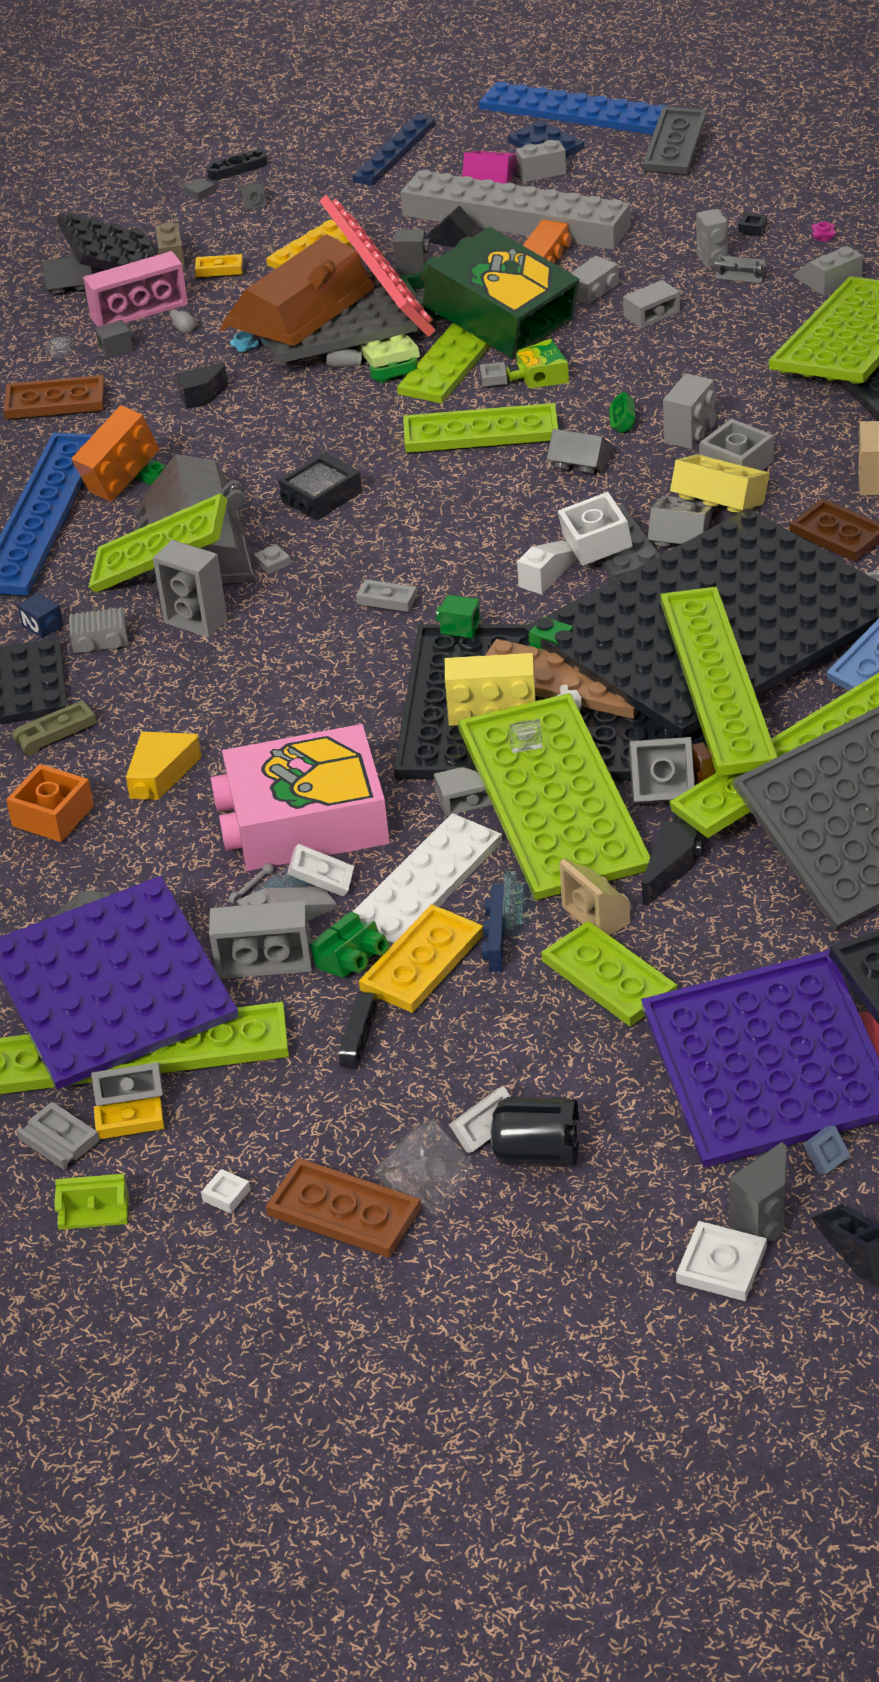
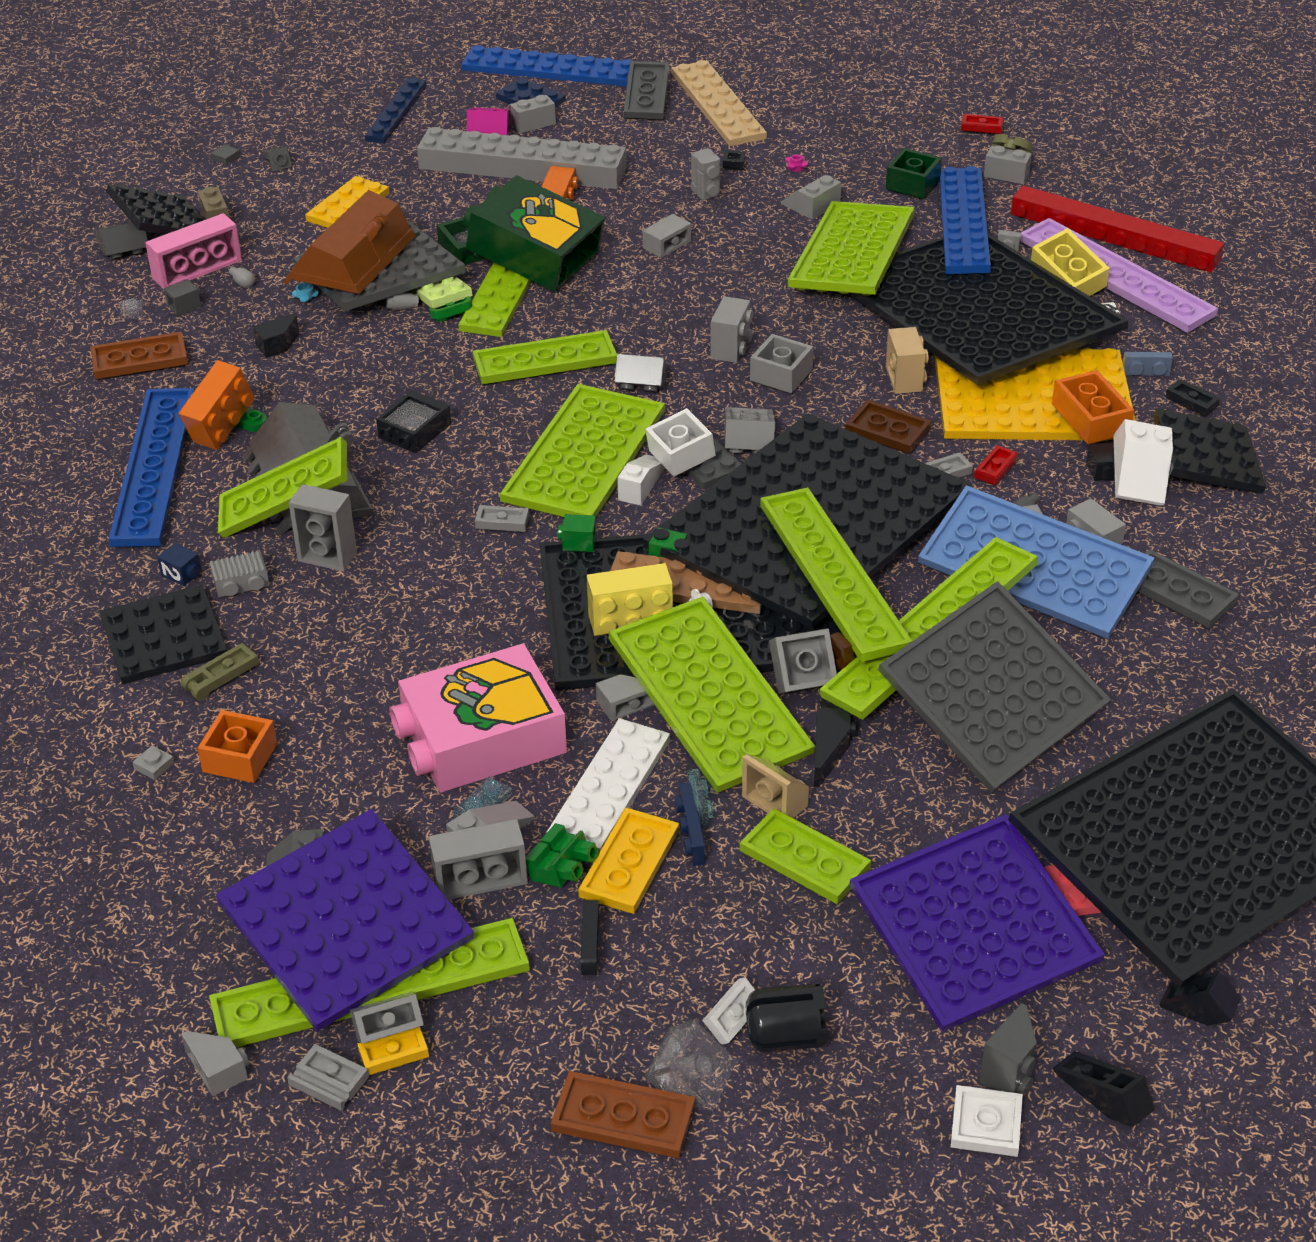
camera: 15 degrees left, 0 degrees up
(91, 1201) = (379, 1140): lime hinge -> none
(160, 763) = (333, 696): yellow slope -> none
(219, 265) = (263, 223): yellow plate -> none
(225, 1191) = (506, 1112): white plate -> none
(236, 164) = (254, 131): black beam -> none
(267, 869) = (437, 819): light grey hinge -> none
(272, 559) = (385, 492): light grey plate -> none
(320, 870) = (514, 785): white plate -> none
(379, 265) = (417, 214): coral plate -> none
(410, 251) = (442, 202): dark grey brick -> none
(452, 228) = (470, 179): black slope -> none
(489, 531) = (582, 452): none -> lime plate
(493, 374) = (542, 307): light grey plate -> none
(526, 735) = (676, 640): clear plate -> none
(540, 365) = (583, 297): lime torso -> none
(596, 279) = (616, 214): light grey brick -> none
(622, 413) = (668, 334): green plate -> none
(719, 482) = (776, 392): light yellow brick -> none
(739, 268) = (734, 200): dark grey hinge -> none
(755, 159) = (718, 103): none -> tan plate
(826, 1149) = (1049, 1001): sand blue plate -> none

